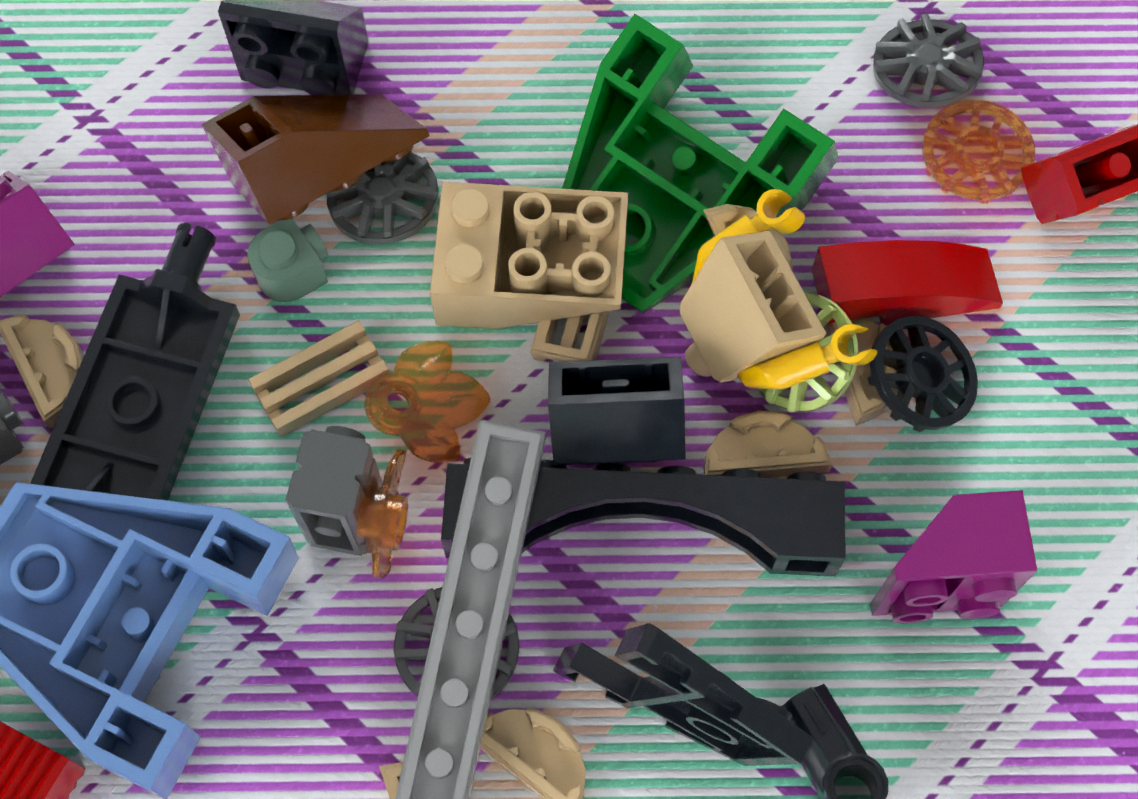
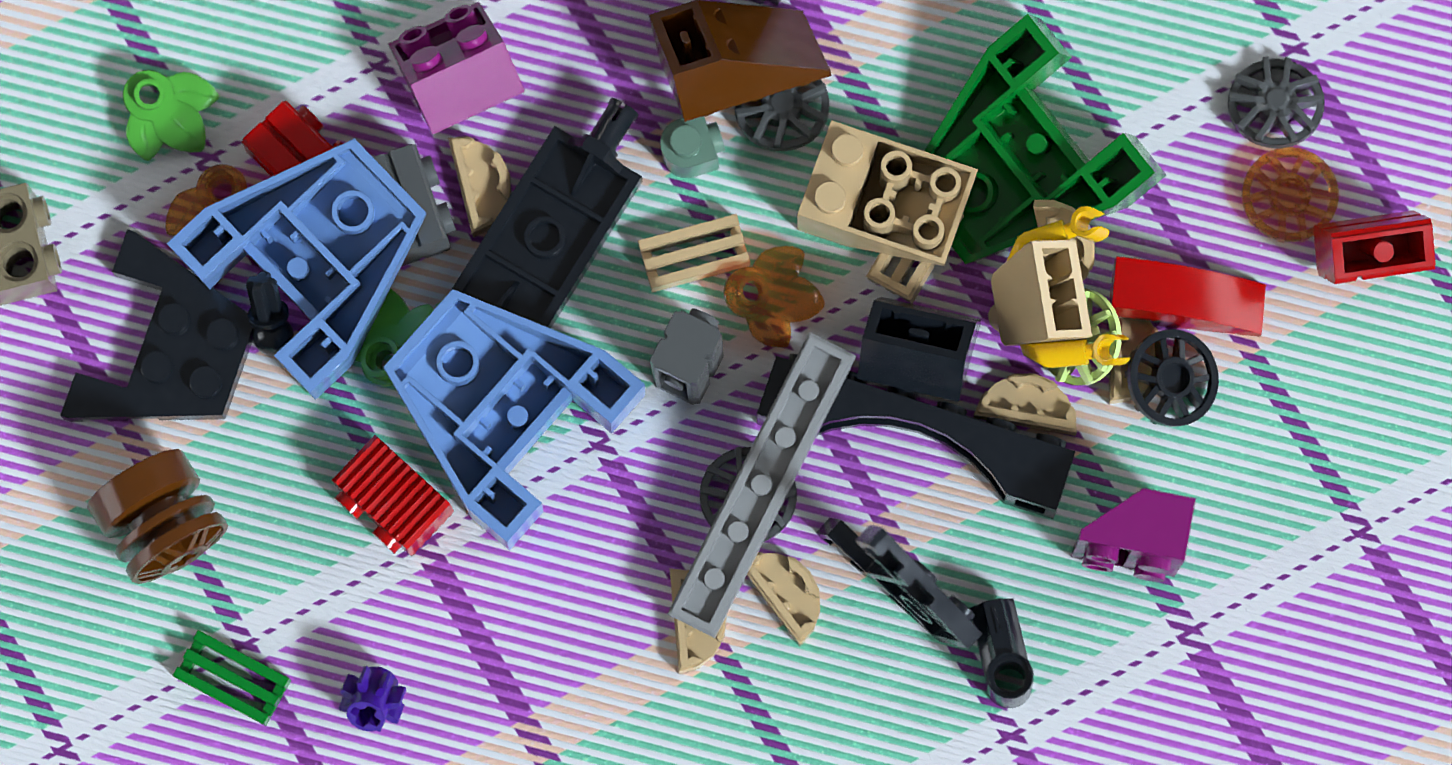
camera: 20 degrees right, 10 degrees up
(384, 517) = (719, 386): clear orange plate -> none

